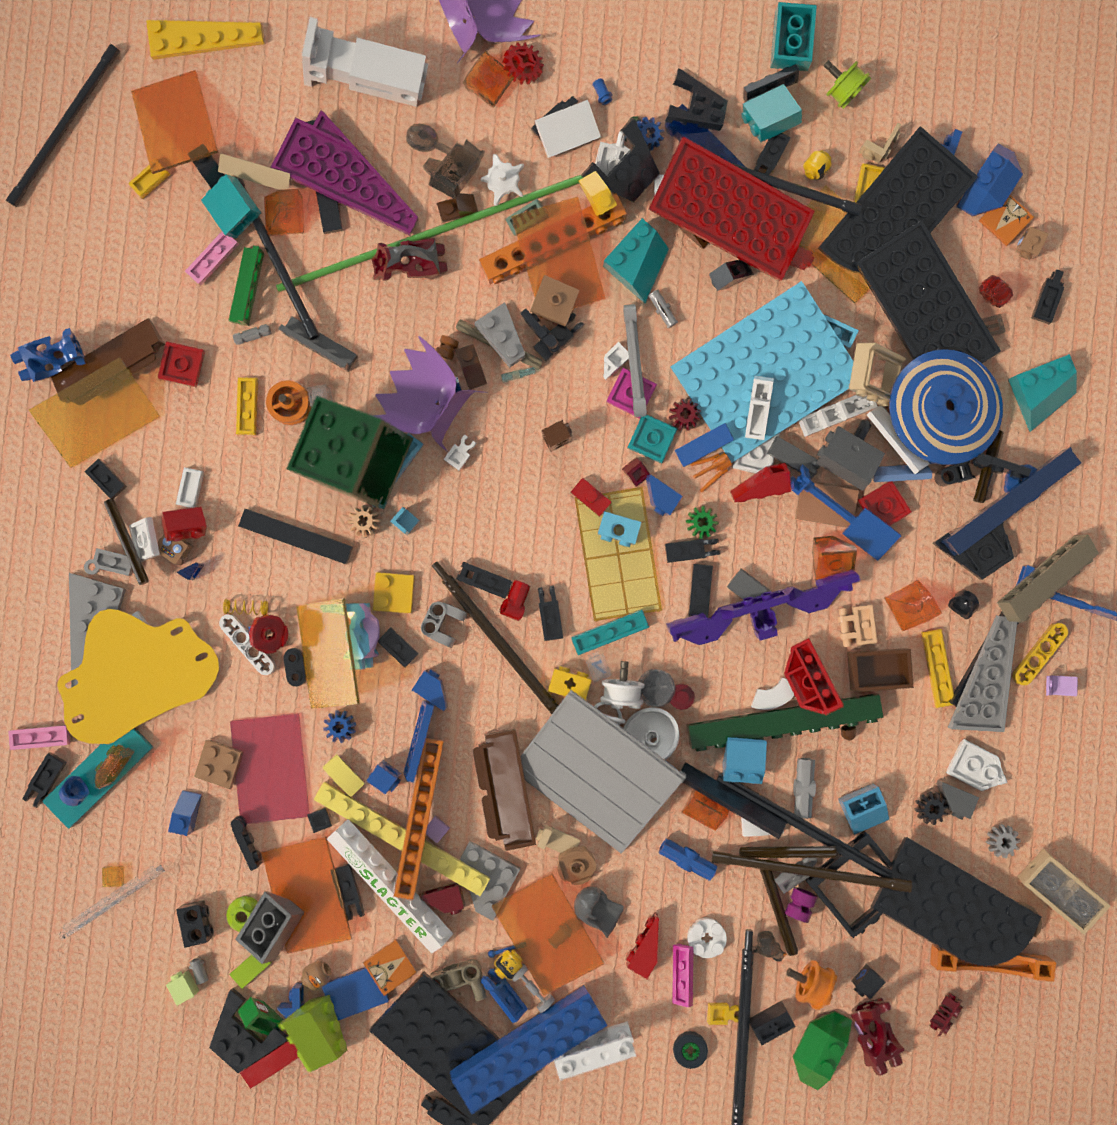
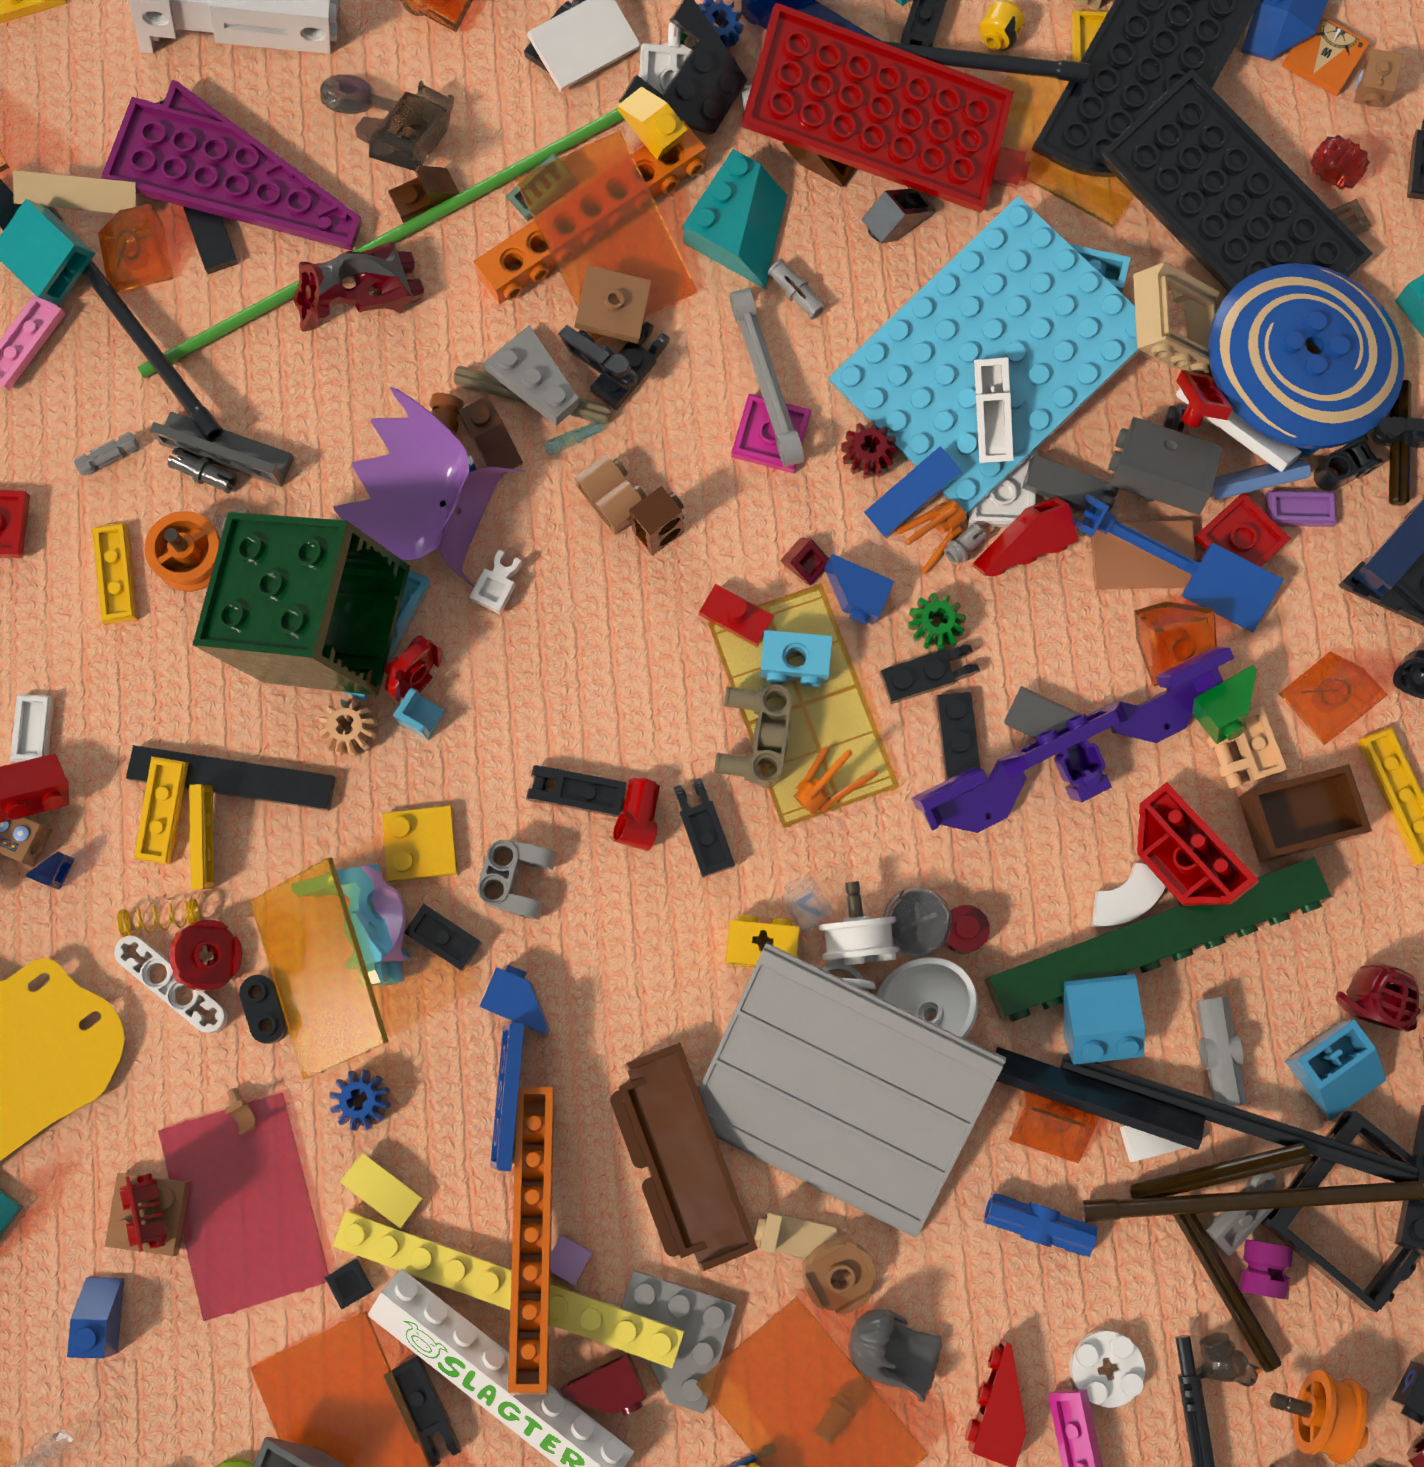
camera: 15 degrees left, 10 degrees down
(216, 776) = (130, 1197): none -> red hinge
(245, 842) = (216, 1351): black hinge -> none
(246, 286) = (87, 377): green fence -> none
(255, 548) = (161, 810): none -> yellow tile
(275, 568) = (201, 836): none -> yellow tile
(275, 720) = (241, 1112): none -> medium nougat piece
(304, 355) = (202, 470): none -> dark grey pin
(384, 777) = (456, 1176): blue brick -> none
(405, 496) = (412, 667): none -> red plate
(496, 639) = (616, 890): dark brown axle -> none
(503, 179) = (491, 133): white piece -> none
(533, 412) = (609, 492): none -> medium nougat brick
(596, 570) = (770, 734): none -> dark tan piece
(610, 632) = (815, 840): teal tile -> none
(613, 607) = (813, 795): none -> orange plant
(614, 359) = (733, 384): white slope -> none
(652, 438) = (821, 500): teal tile -> none
(727, 480) = (958, 550): none -> light grey pin
(835, 414) = (1120, 404): white slope -> none
(848, 732) = (1275, 937): reddish brown hinge -> none
(851, 603) = (1226, 706): none -> green slope
(881, 422) = (1203, 398): none -> red tile
(897, 776) = (1382, 997): none -> dark red piece
(922, 494) = (1302, 508): none -> medium lavender tile

